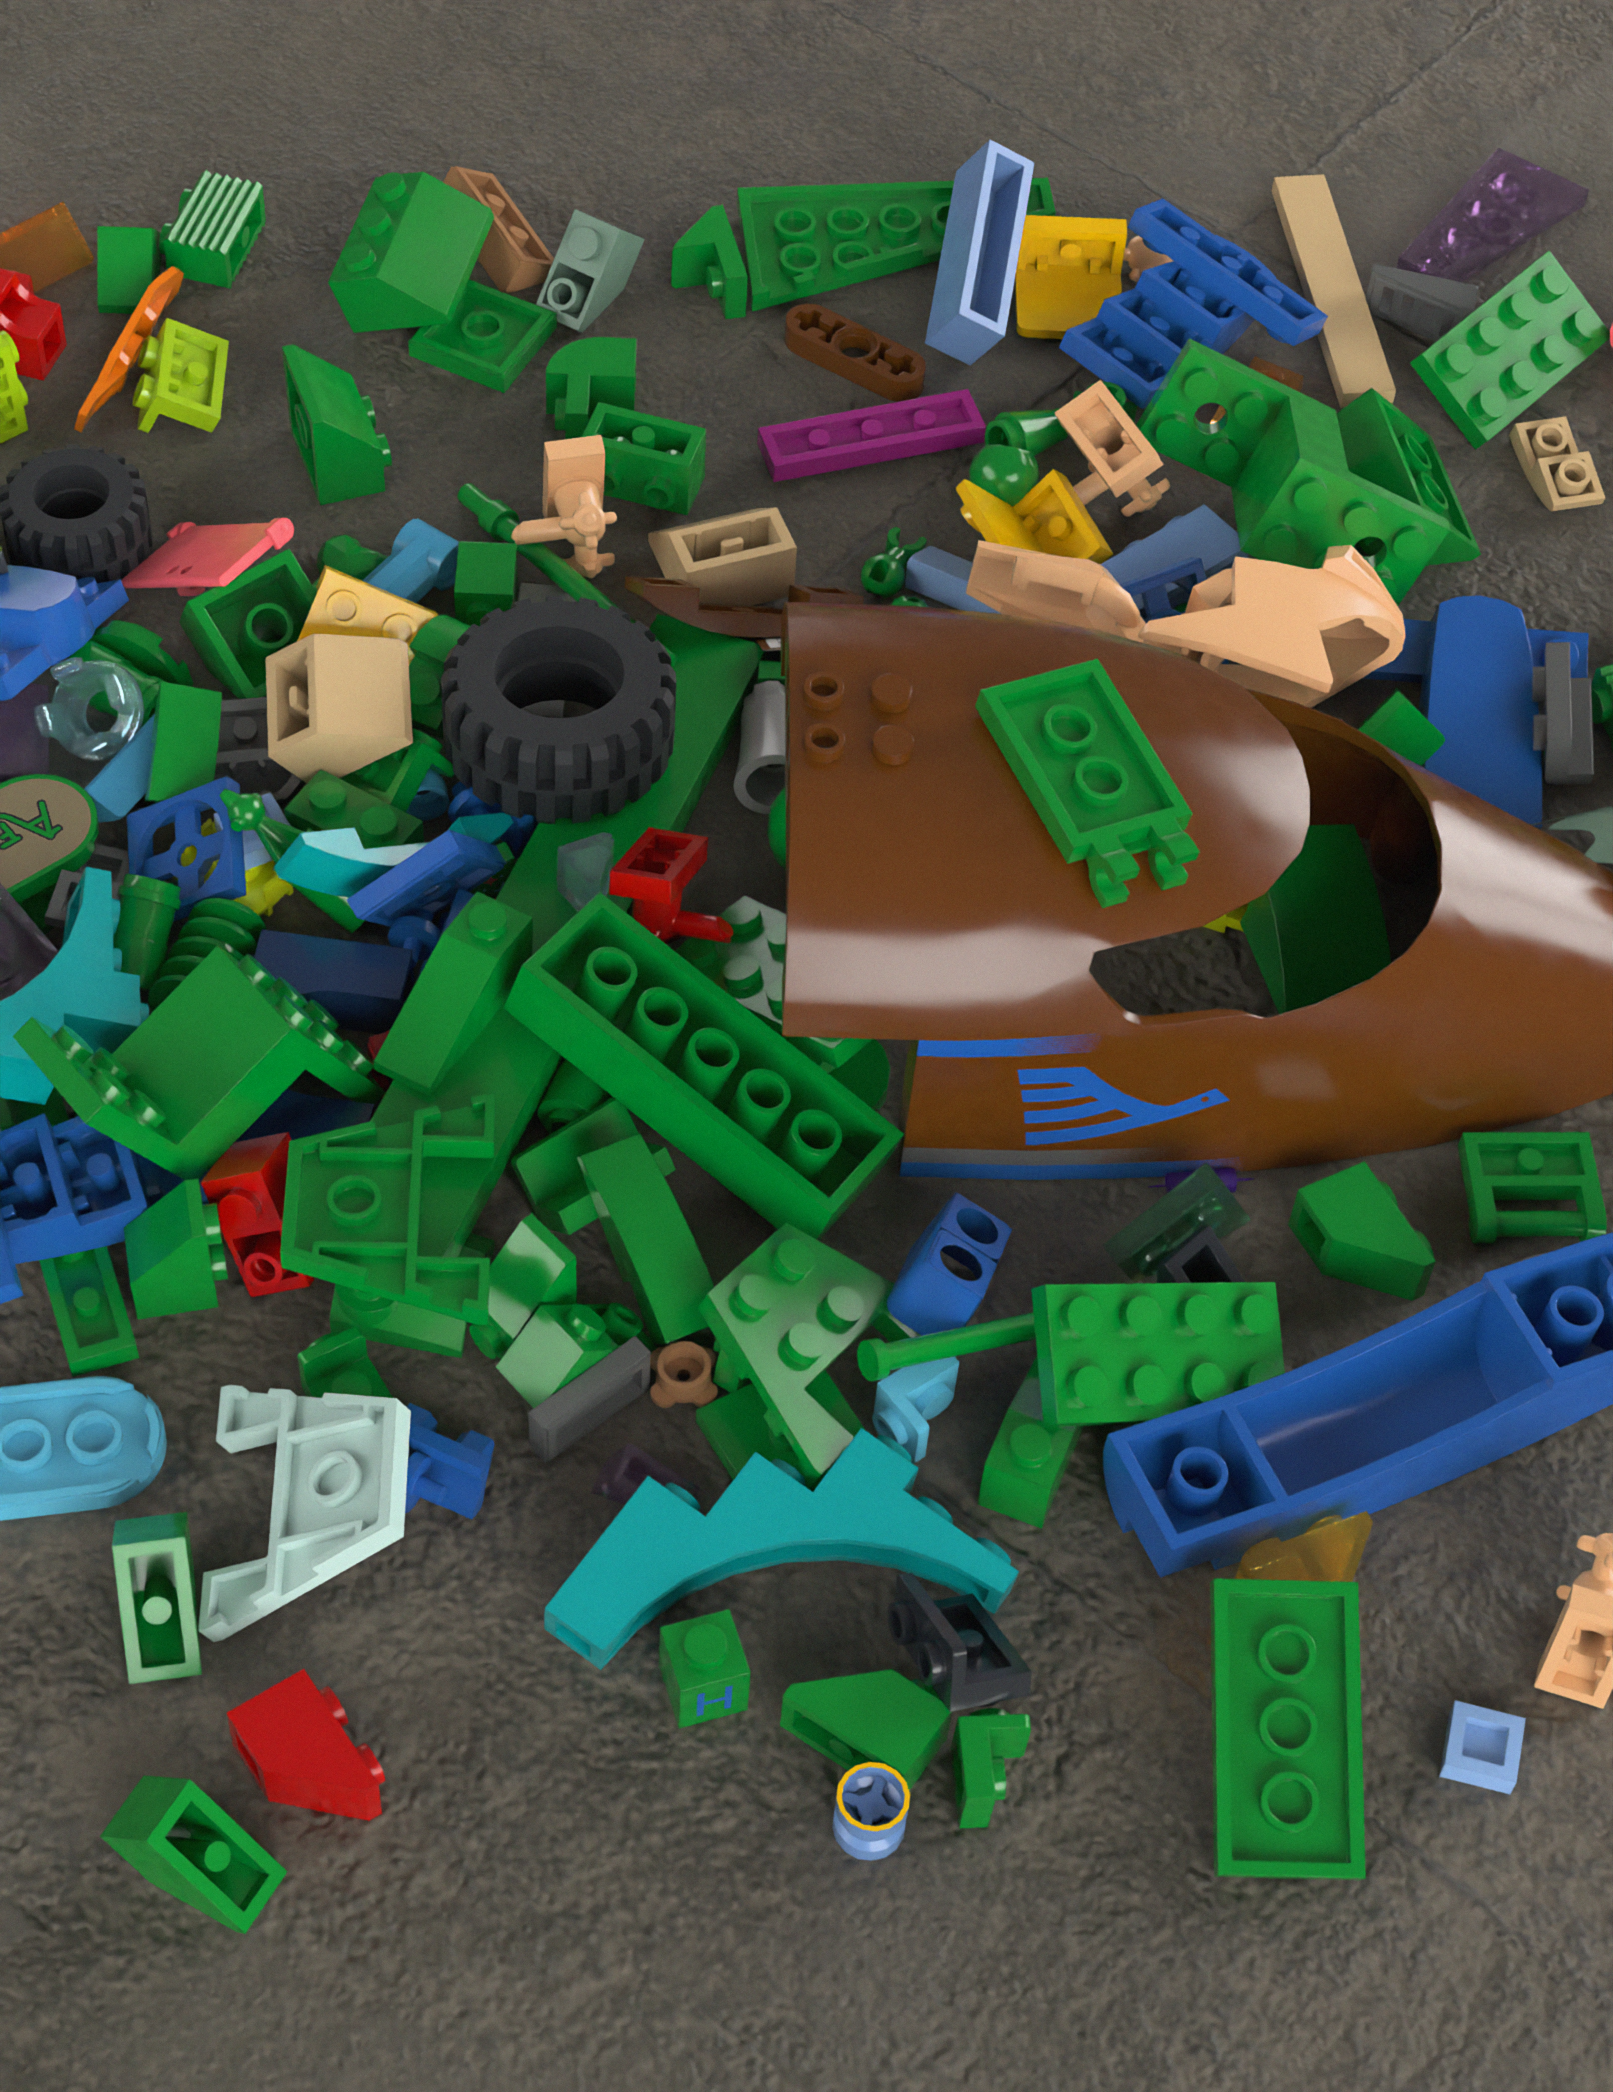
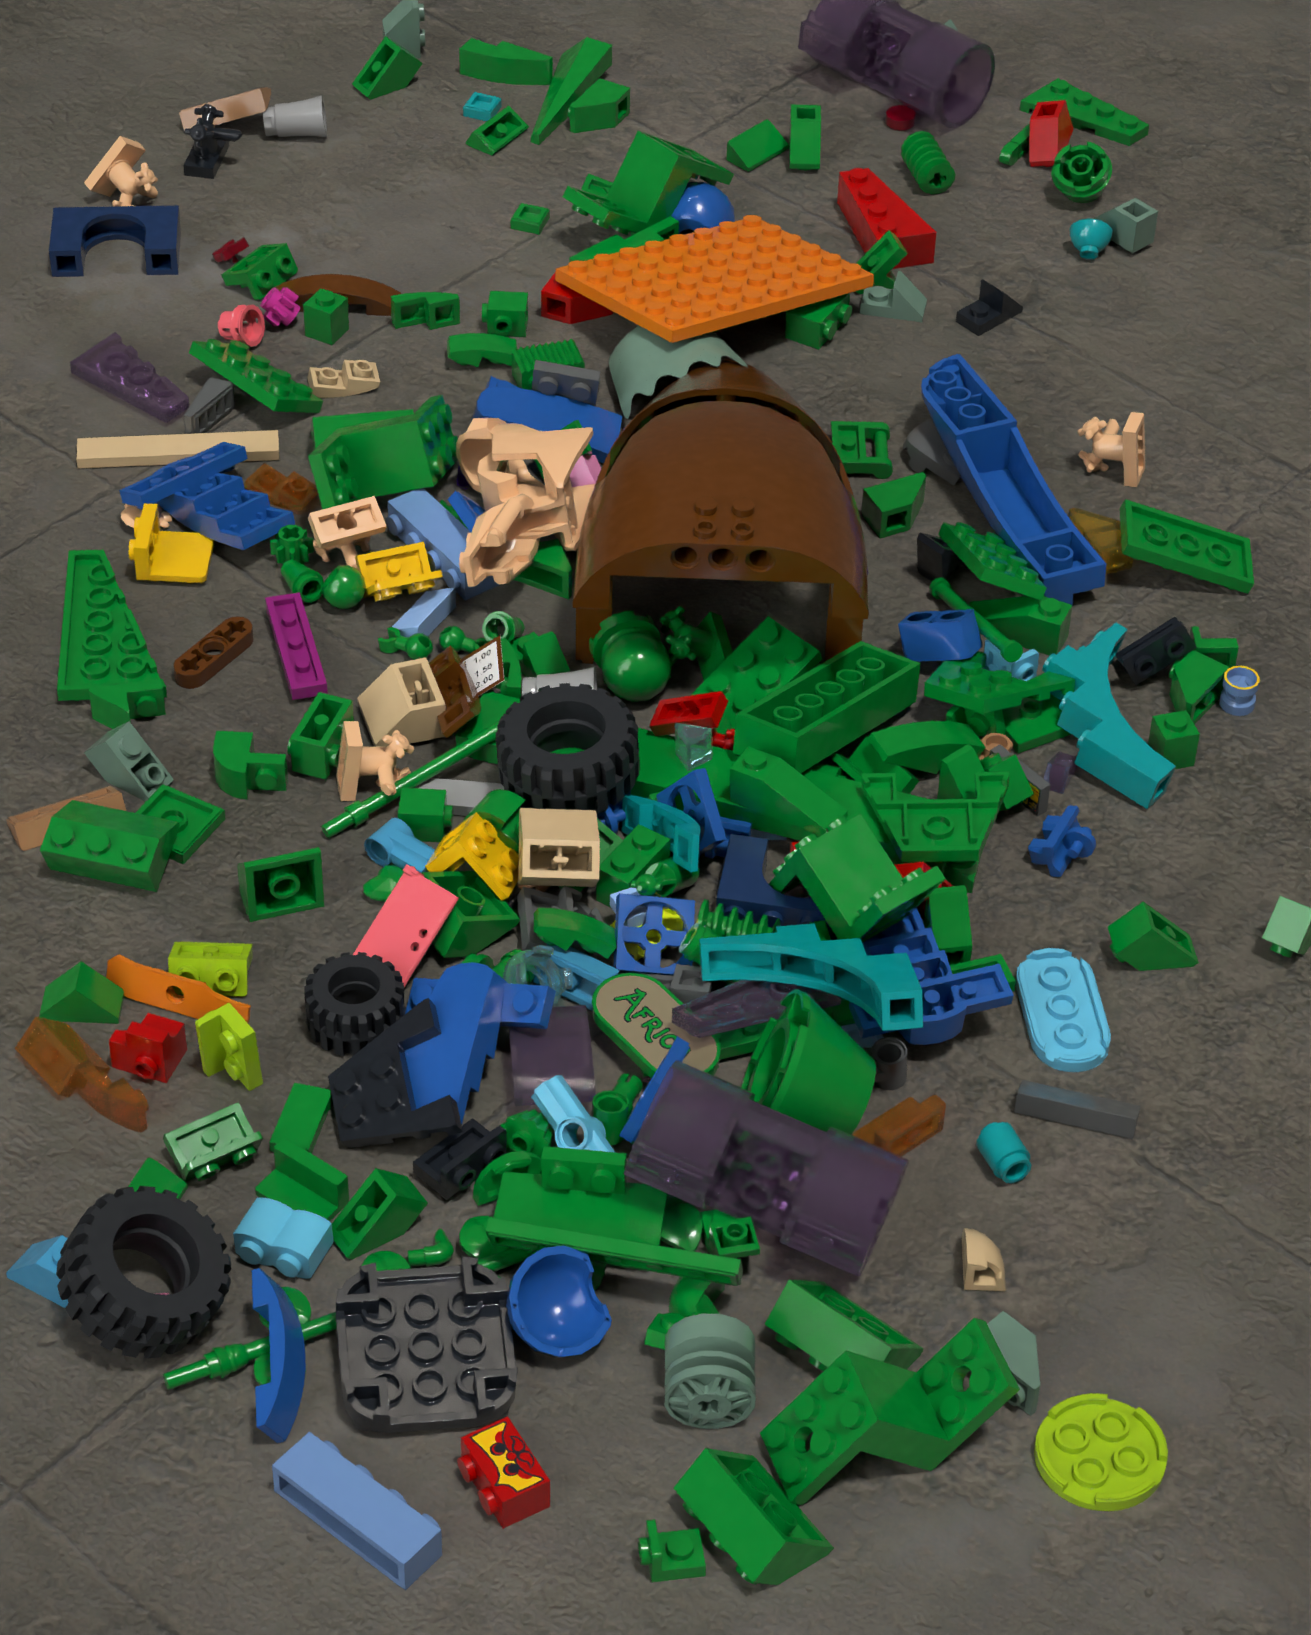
camera: 85 degrees left, 10 degrees down
(214, 228) = (55, 947): green brick -> none
(302, 1754) = (1232, 886): red slope -> none
(332, 1498) = (1088, 860): light aqua wing -> none
(340, 1366) = (1016, 878): green bracket -> none
(980, 253) = (157, 573): medium blue brick -> none
(1091, 776) = (759, 443): green tile -> none
(1174, 1218) = (904, 568): clear green wing -> none
(1482, 1747) = (1174, 500): light blue tile -> none

